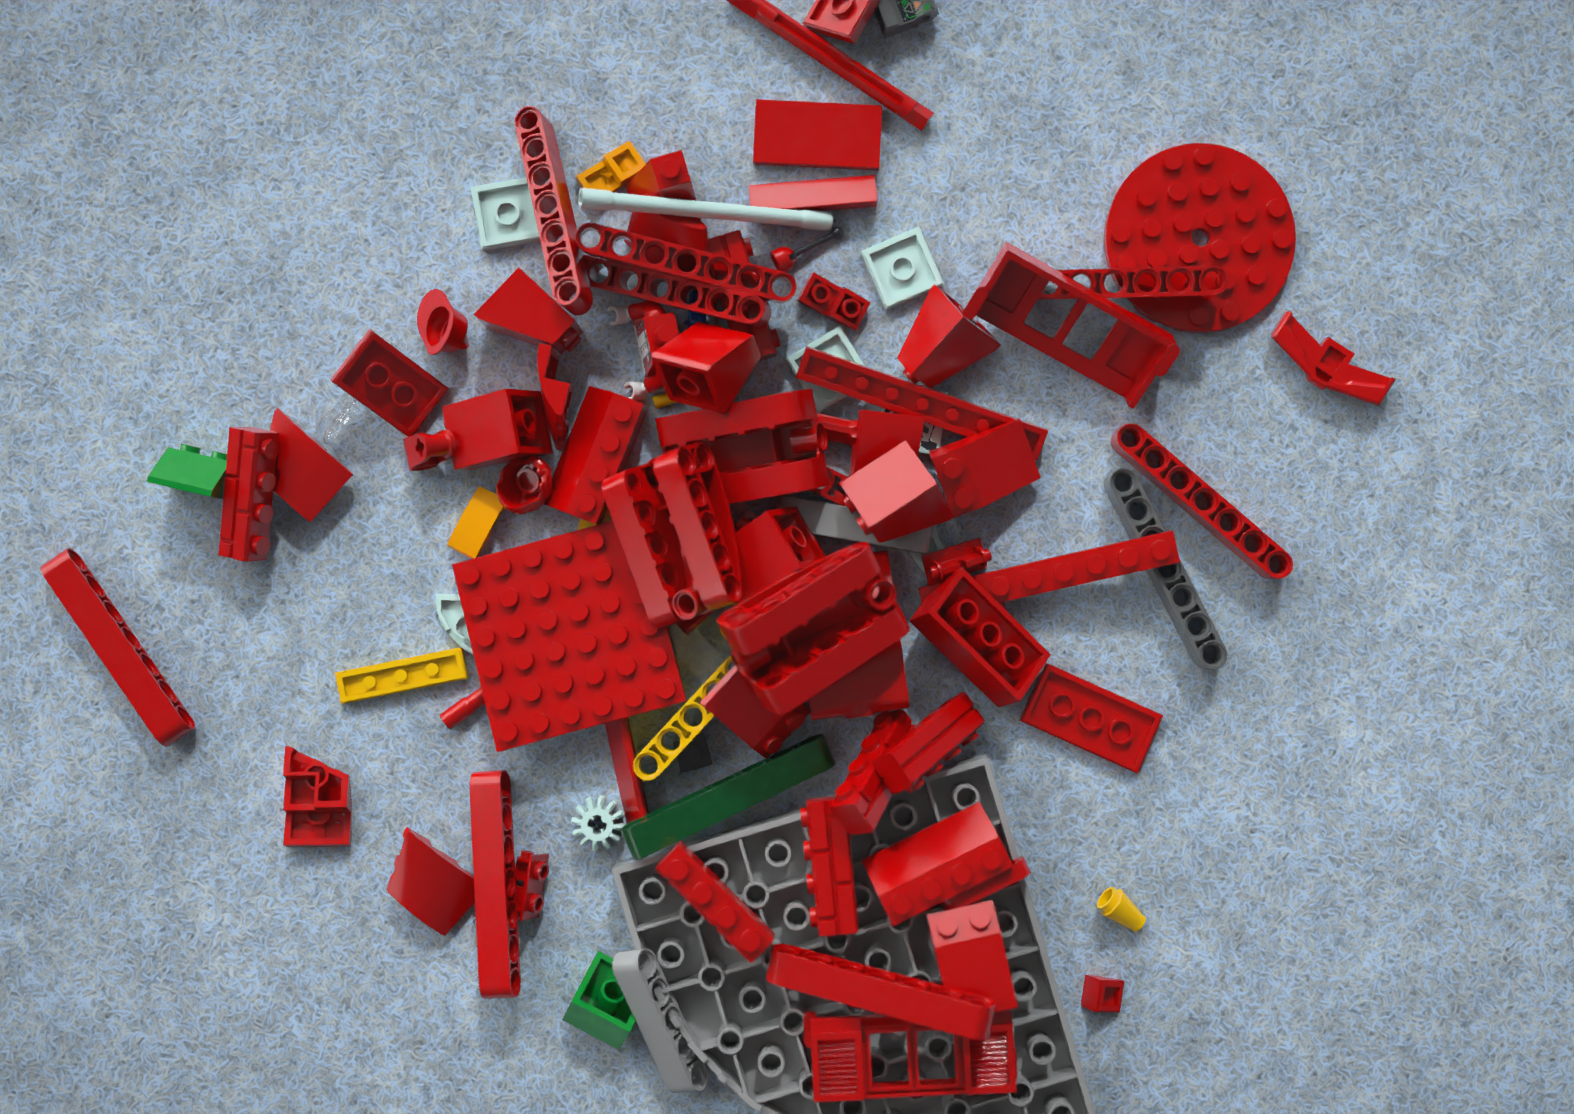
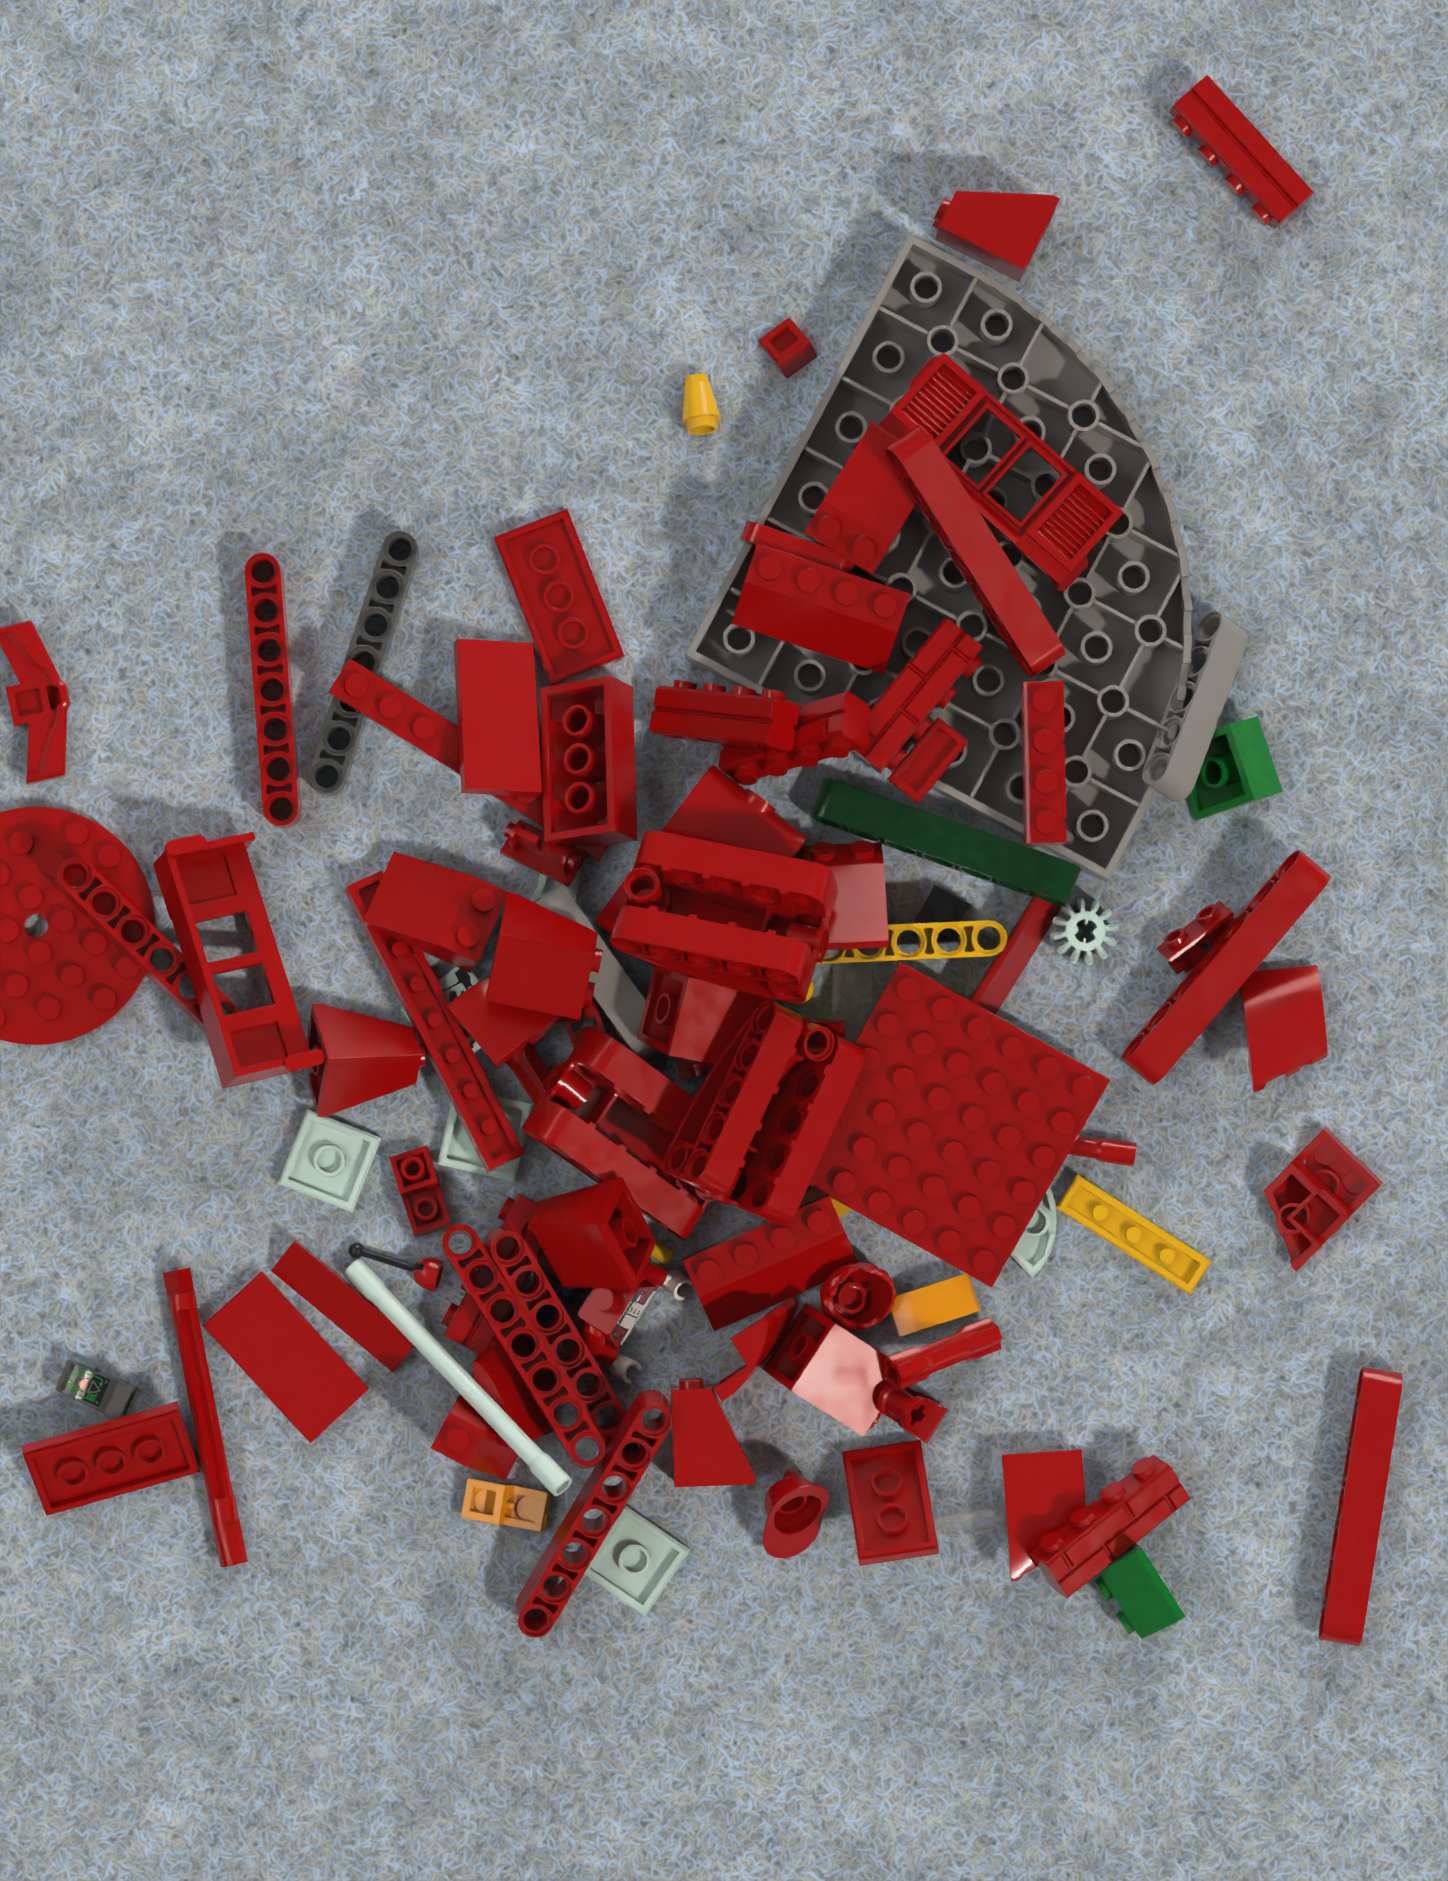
camera: 135 degrees left, 0 degrees up
(449, 477) = (919, 1362): none -> red axle
(785, 835) = (927, 760): none -> red tile
(1059, 612) = (497, 718): none -> red tile

